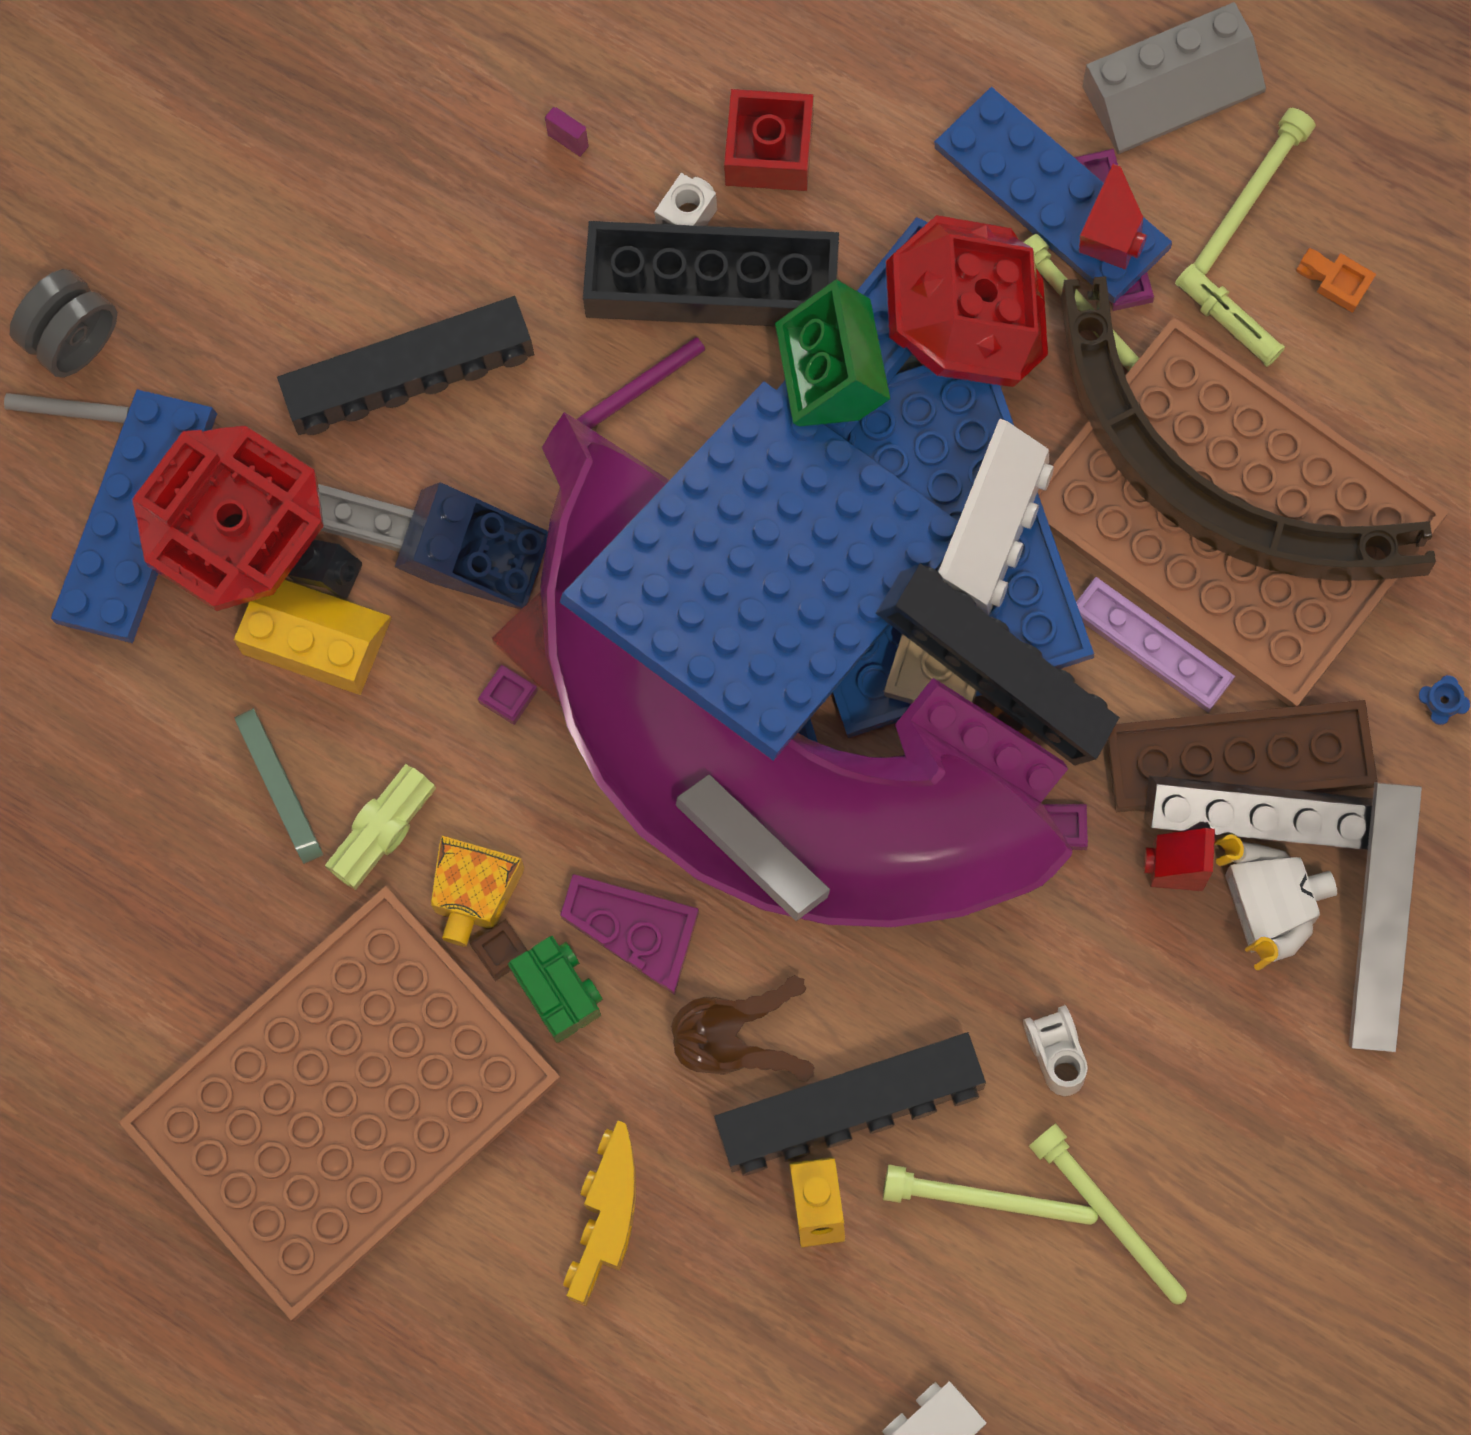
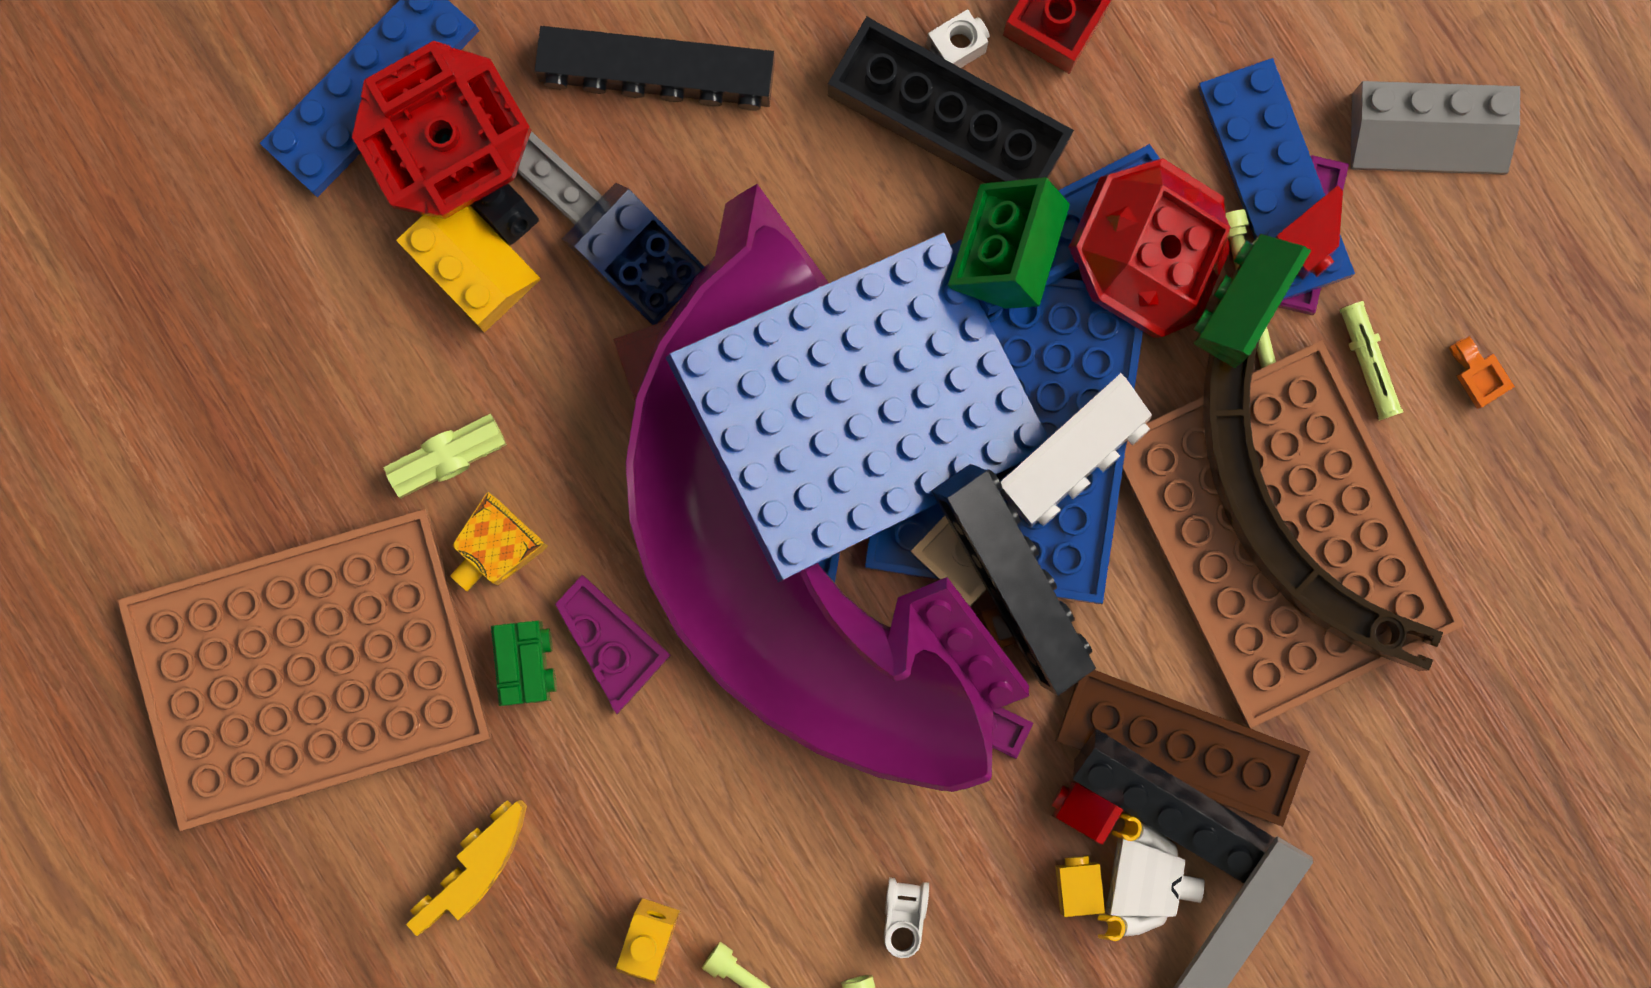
camera: 20 degrees right, 10 degrees up
(278, 786) = (378, 380): sand green beam -> none
(498, 948) = (494, 606): reddish brown tile -> none
(507, 694) = (604, 393): magenta tile -> none
(642, 383) = (838, 178): magenta bar -> none
(708, 1030) = (624, 769): reddish brown hair -> none
(752, 847) = (736, 630): light grey tile -> none
(850, 1103) = (713, 877): black brick -> none
(1084, 299) = (1249, 298): none -> green slope
(1153, 645) = (1158, 614): lavender tile -> none
(1213, 937) = (1079, 887): none -> yellow brick
(1294, 128) = (1513, 221): yellowish green piece -> none
(1448, 688) = (1387, 785): blue plate -> none

